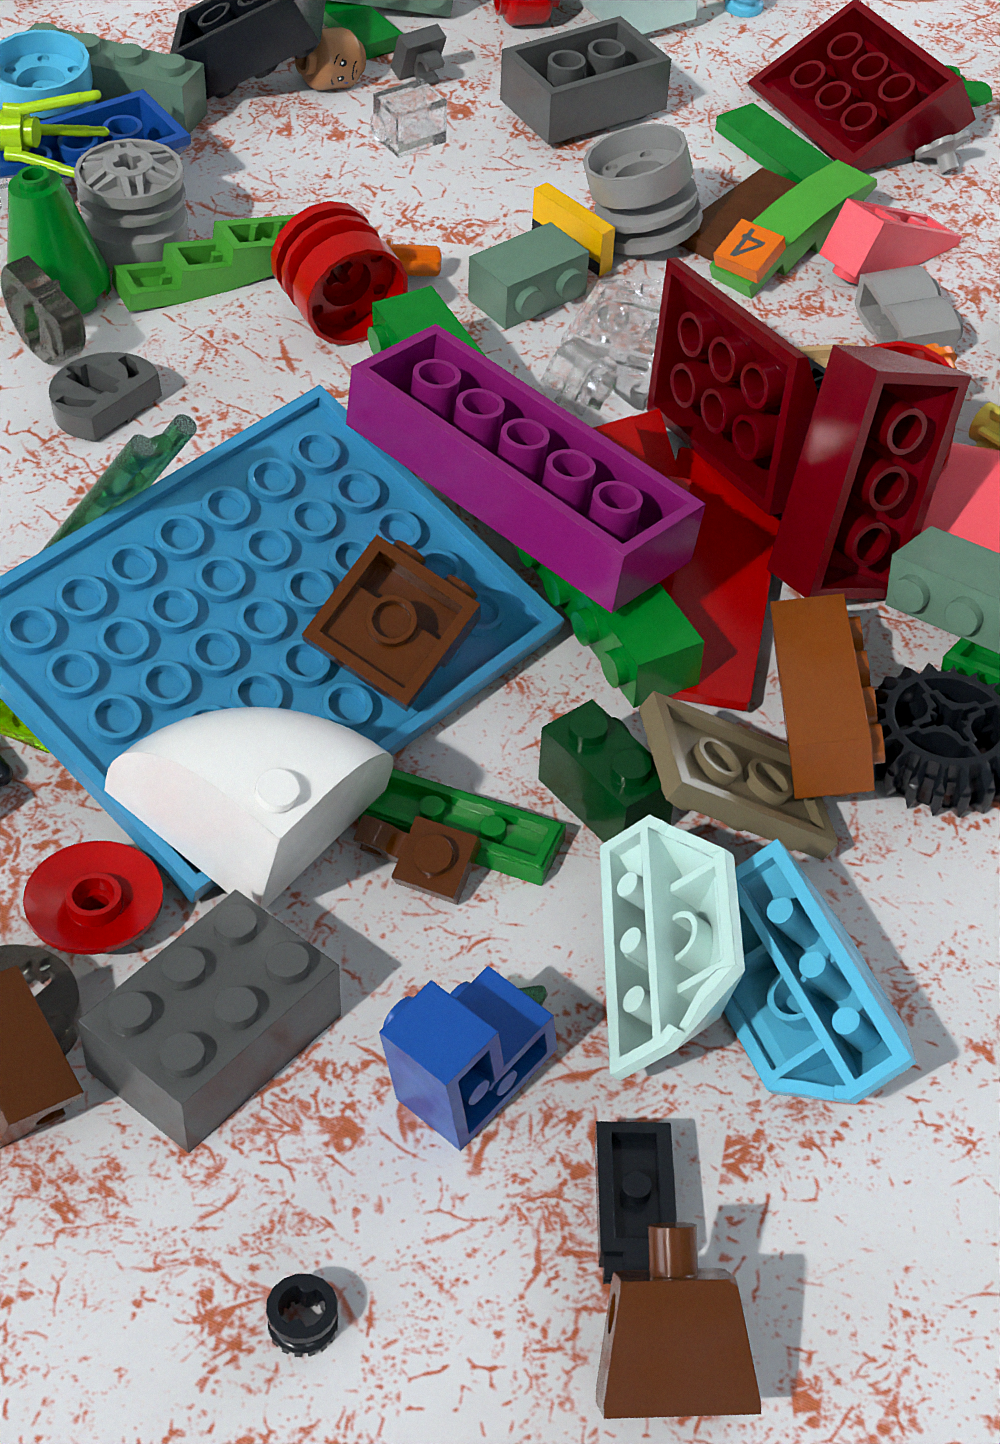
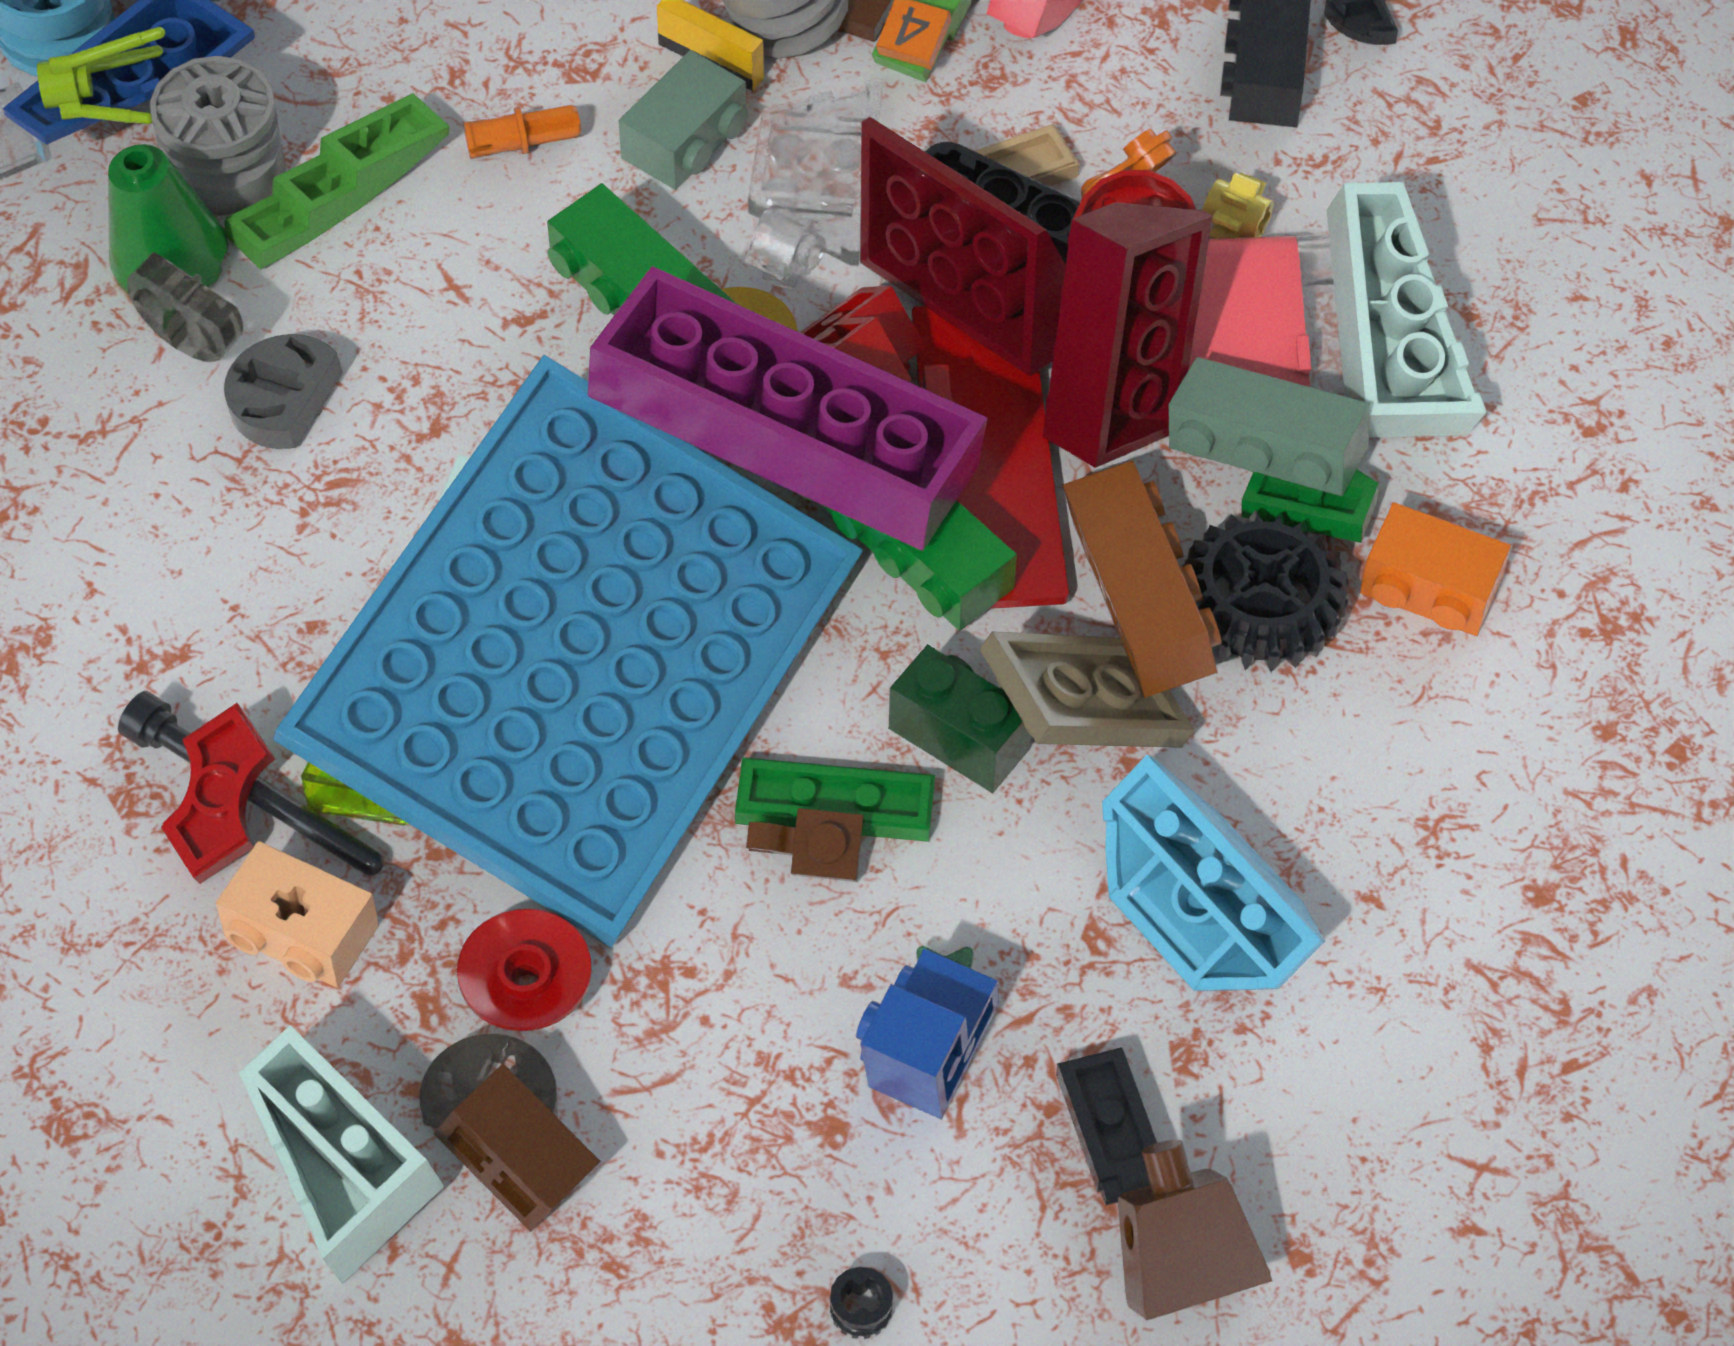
camera: 15 degrees left, 10 degrees up
(129, 474) = (385, 549): clear green bar -> none
(211, 1019) = (683, 1059): dark grey brick -> none
(250, 791) = (641, 832): white brick -> none
(335, 269) = (486, 178): red wheel -> none
(394, 621) = (712, 610): reddish brown plate -> none
(666, 940) = (1071, 876): light aqua wedge -> none
(907, 308) = (1101, 74): light grey brick -> none

